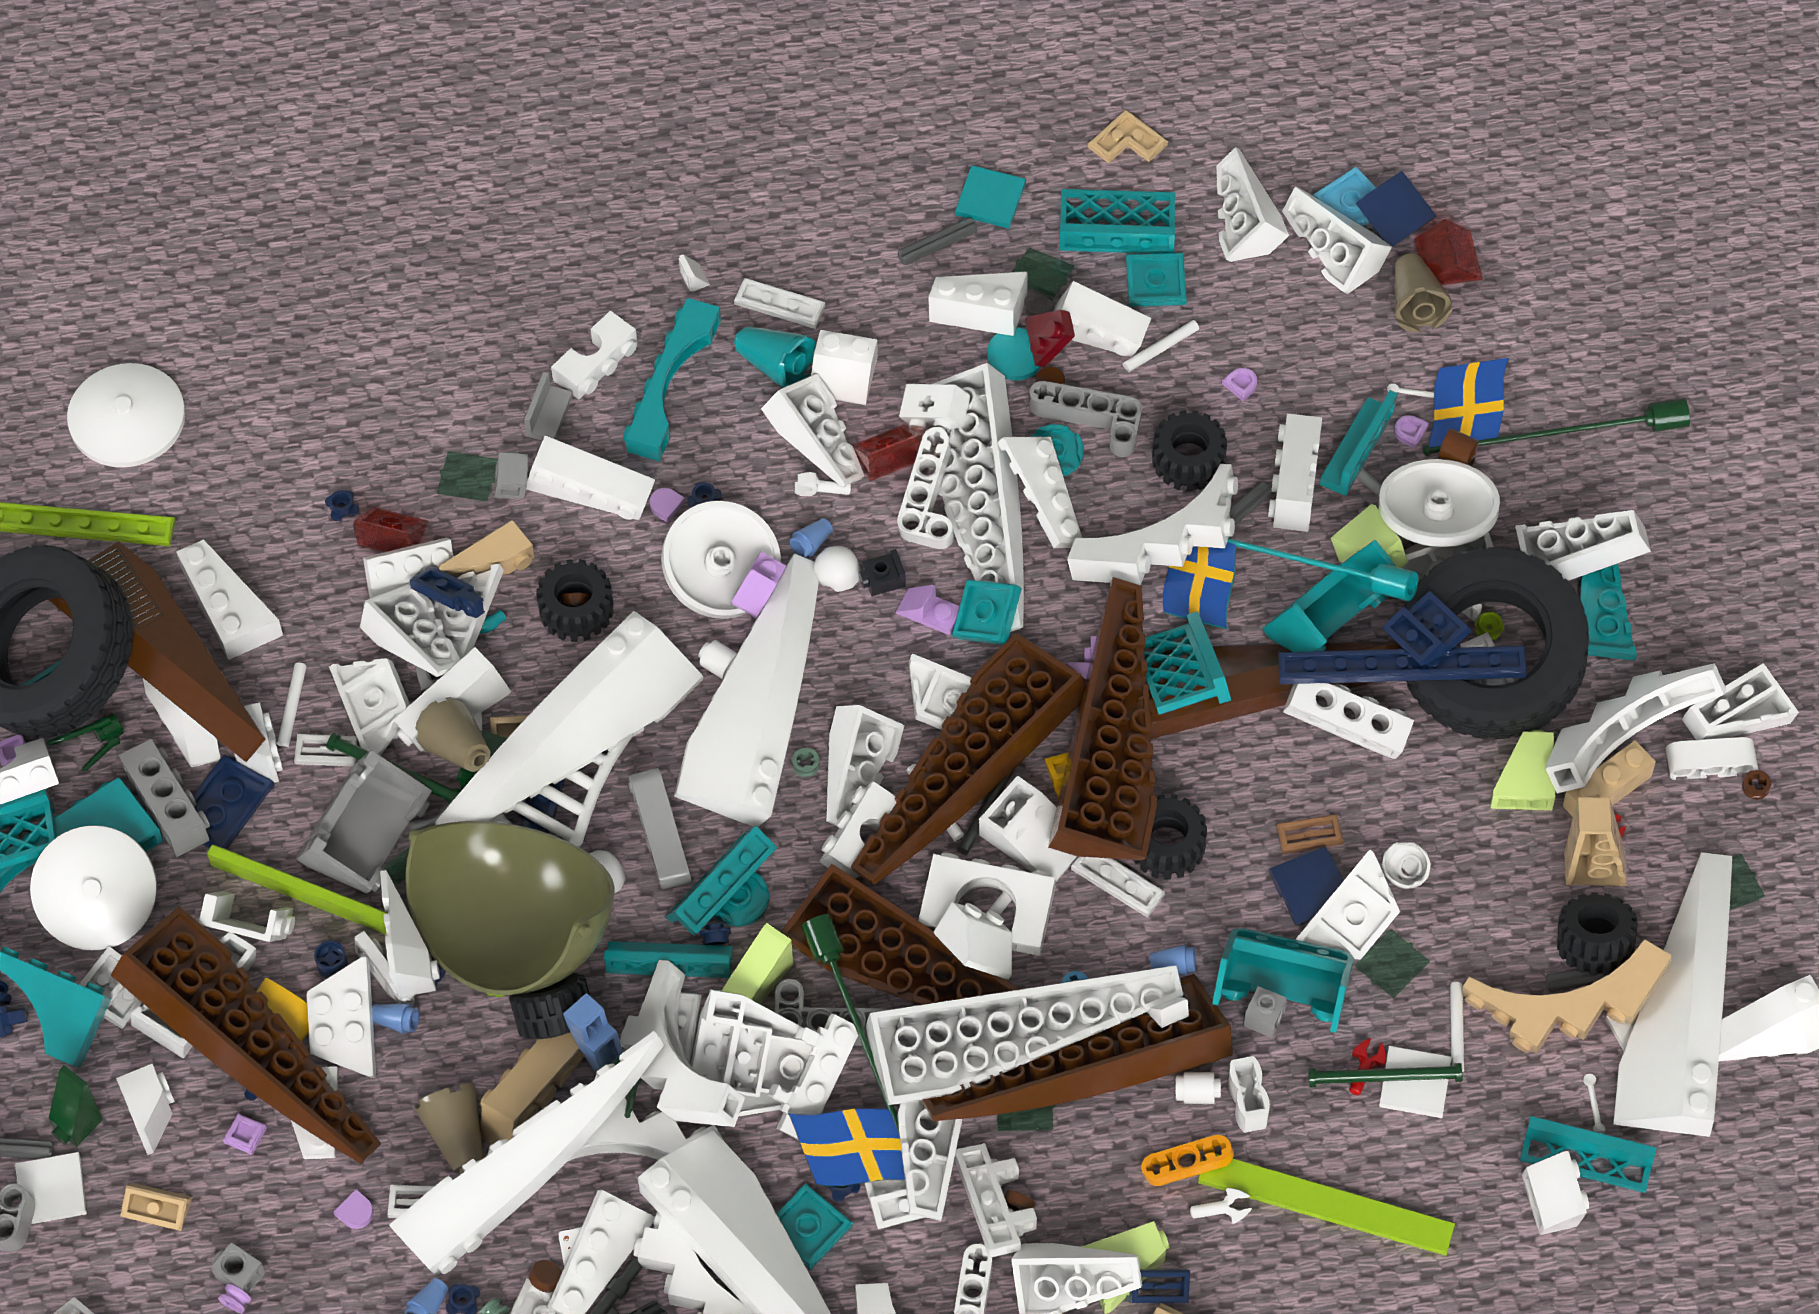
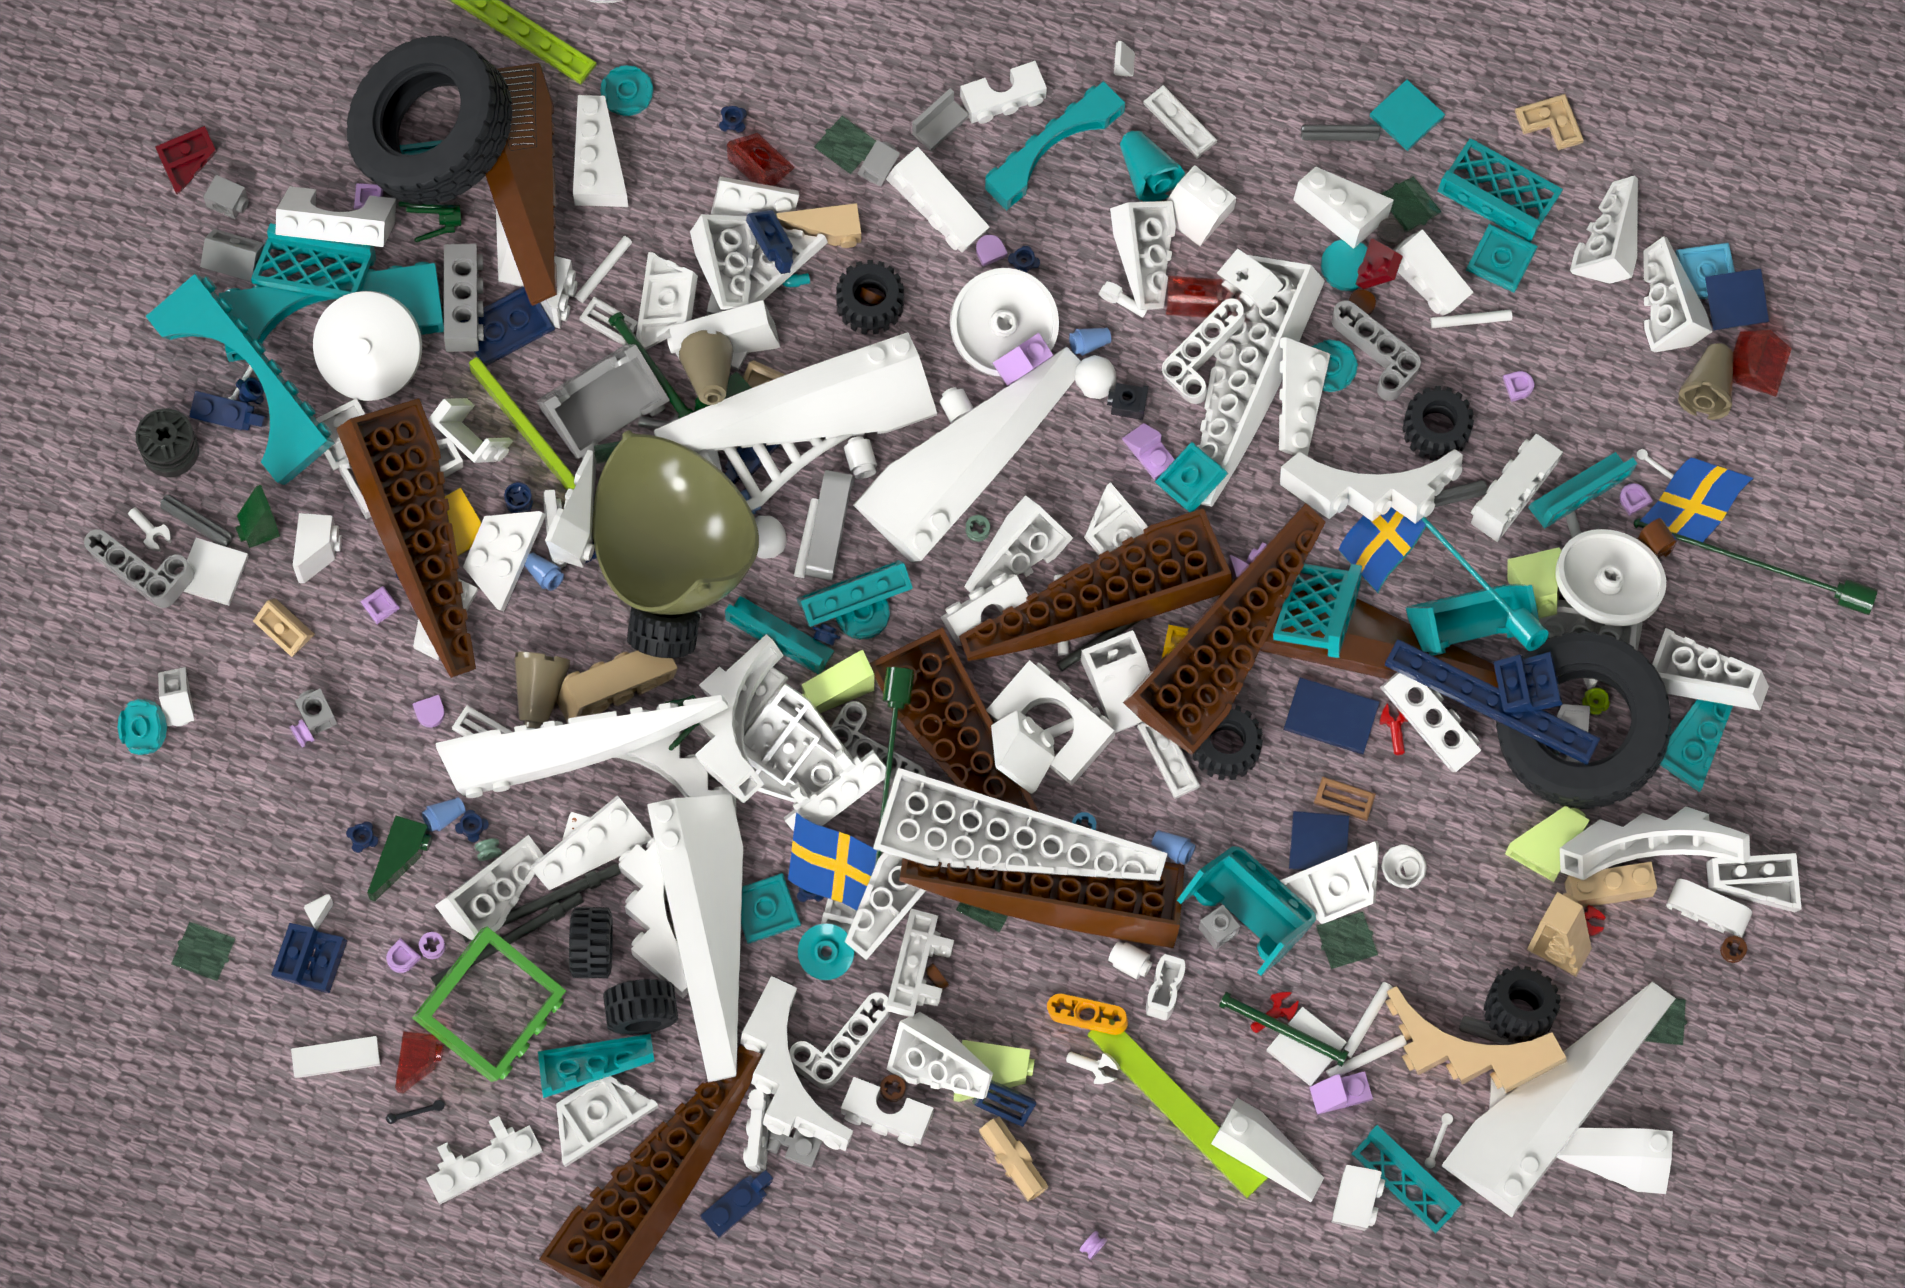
camera: 25 degrees right, 10 degrees up
(228, 531) = (627, 100): none -> teal tile
(545, 1276) = (543, 840): reddish brown tile -> none
(592, 1032) = (680, 668): medium blue slope -> none
(643, 854) = (806, 539): none -> white bar
(652, 752) = (860, 457): none -> white brick
(911, 1230) = (811, 954): none -> teal dish
(1170, 1011) = (1140, 888): white slope -> none
(1250, 764) = (1331, 715): none -> dark blue tile
(1317, 745) = (1396, 730): none -> red bar
(1429, 1197) = (1262, 1146): none -> white wedge
(1474, 1107) = (1340, 1092): none -> lavender slope
(1478, 1062) = (1368, 1056): none -> white bar

